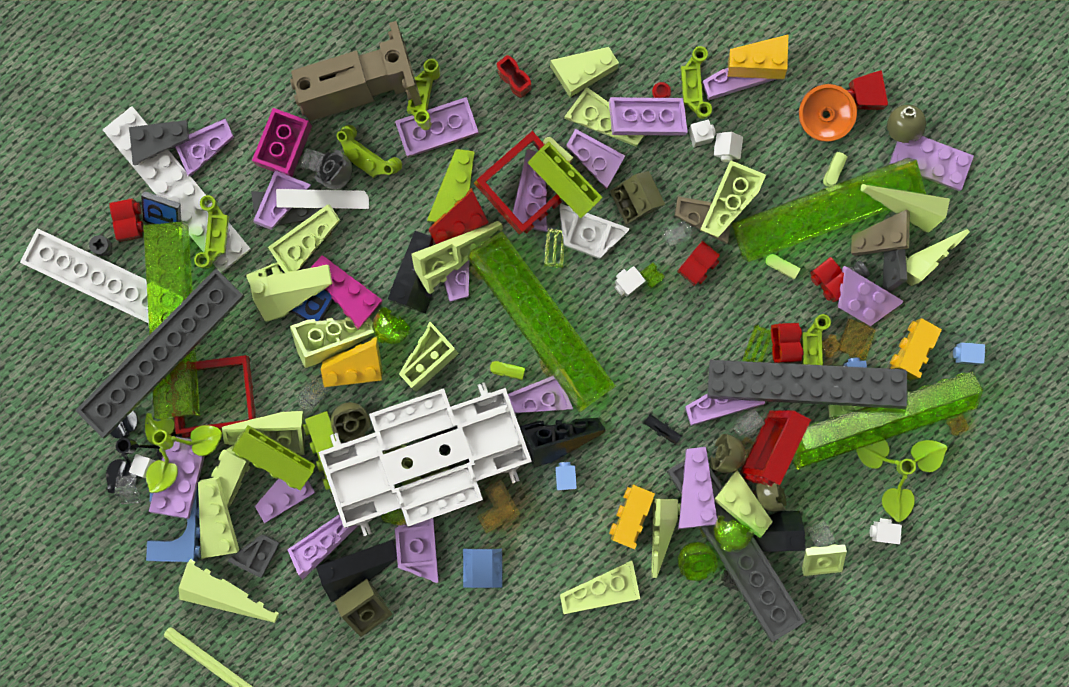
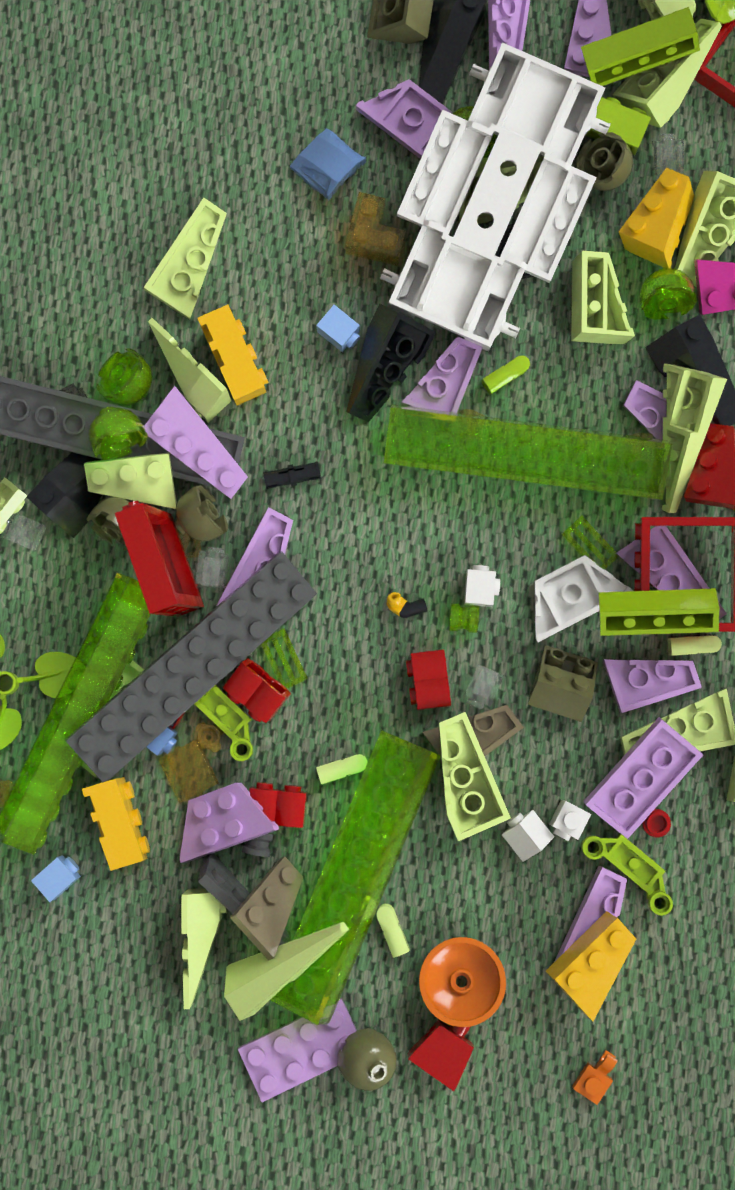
camera: 135 degrees right, 0 degrees up
(674, 309) = (404, 608): none -> arm
(810, 11) = (594, 1081): none -> orange plate

